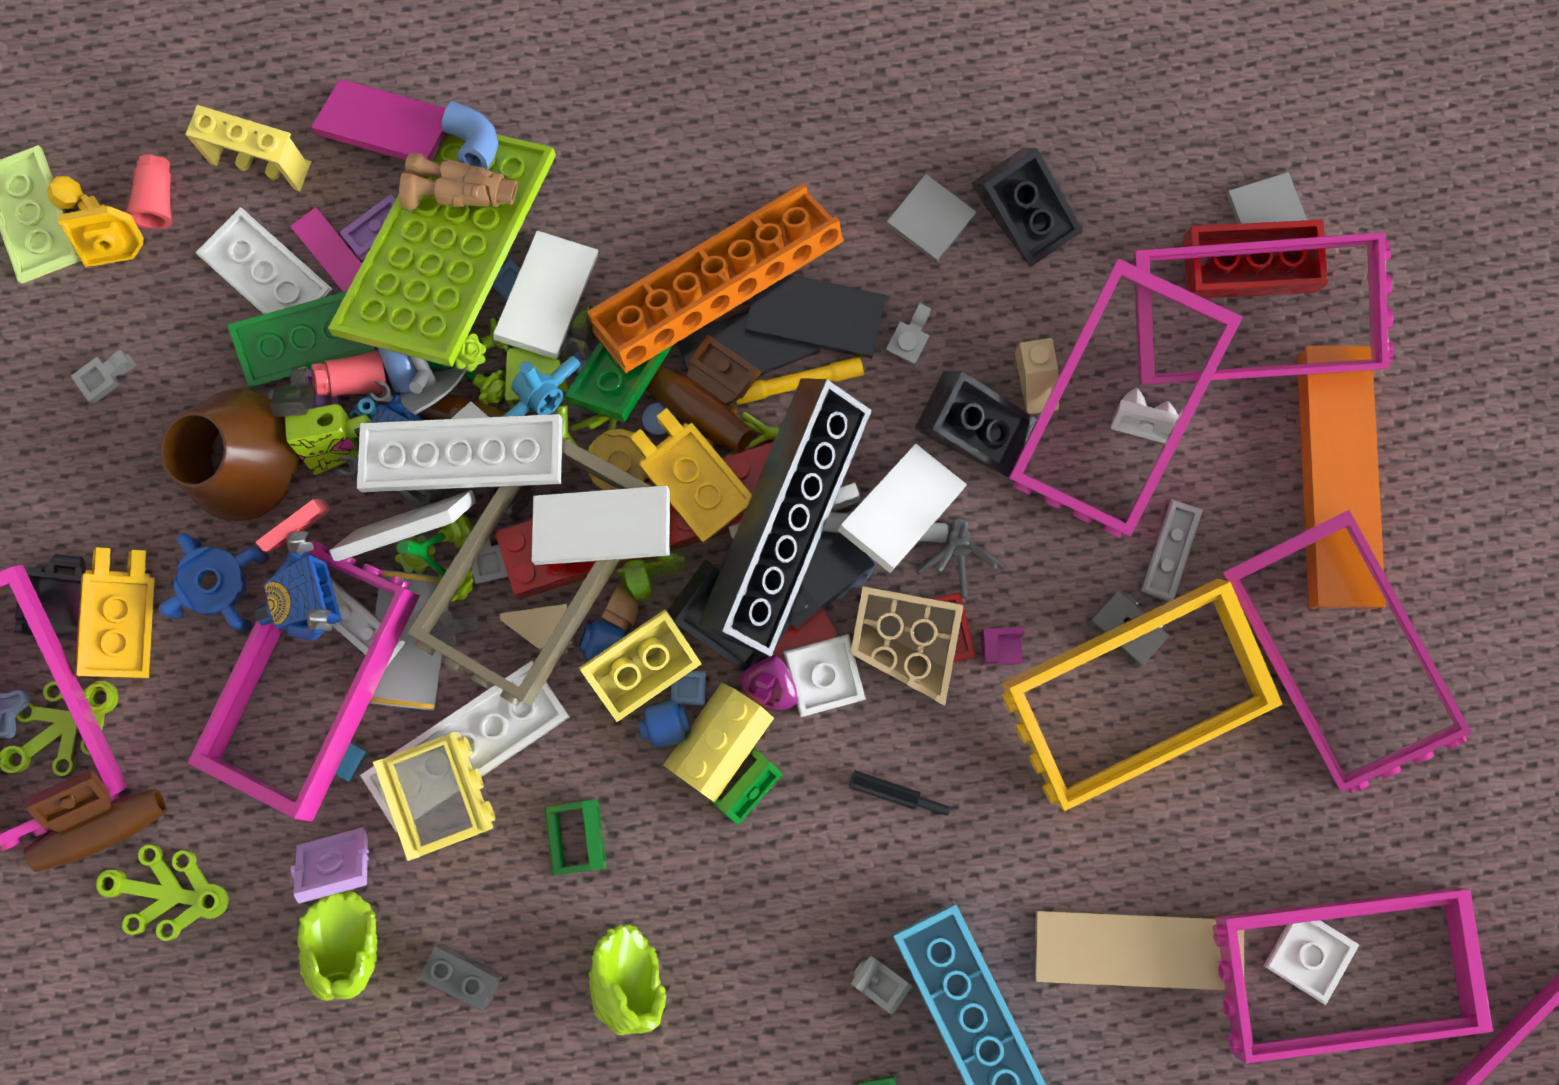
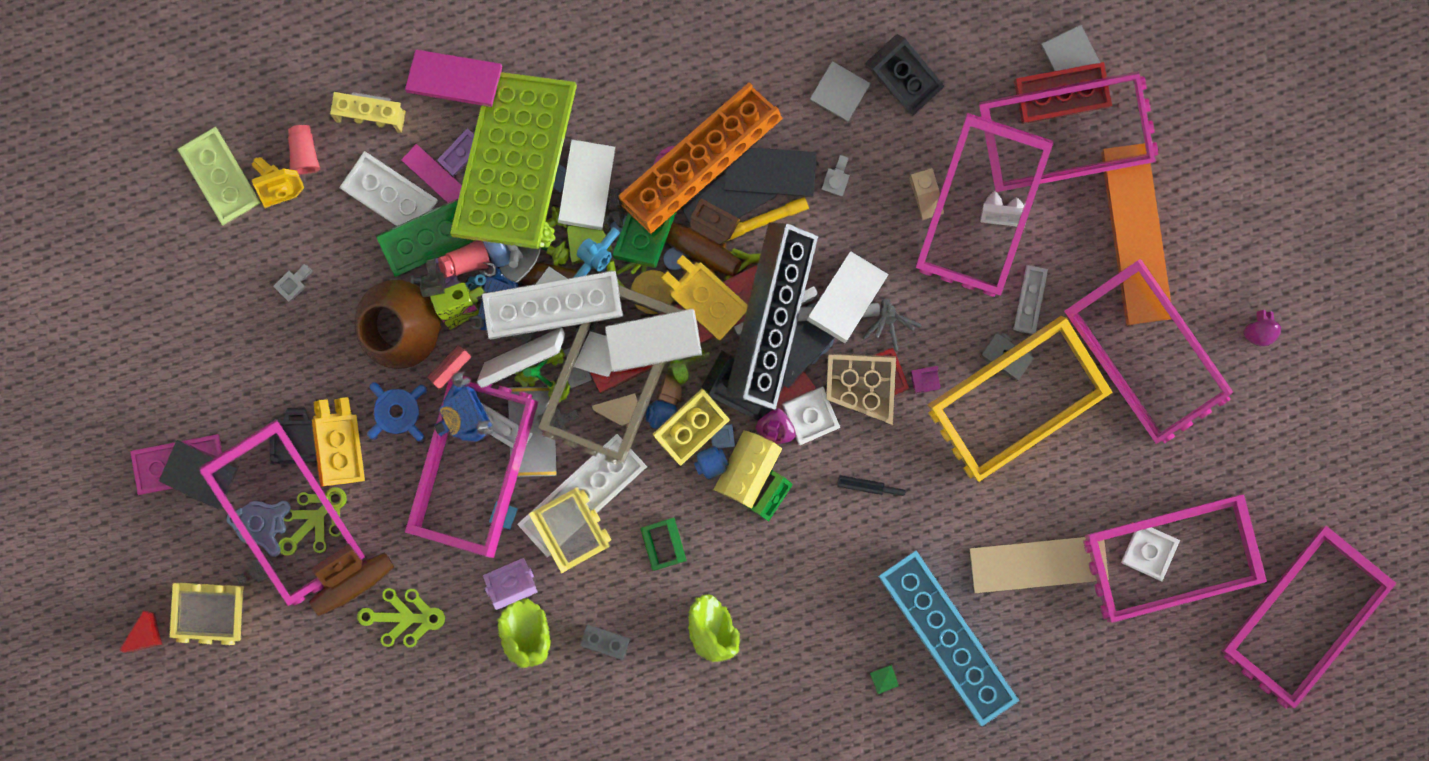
camera: 10 degrees left, 5 degrees up
(64, 192) = (241, 158): yellow tile -> none
(456, 184) = (518, 122): medium nougat piece -> none
(475, 130) = (522, 80): medium blue cylinder -> none
(512, 539) = (595, 355): none -> white sticker
(880, 984) = (875, 608): light grey bracket -> none
(975, 422) = (889, 231): black slope -> none
(1518, 644) = (1263, 331): none -> magenta piece

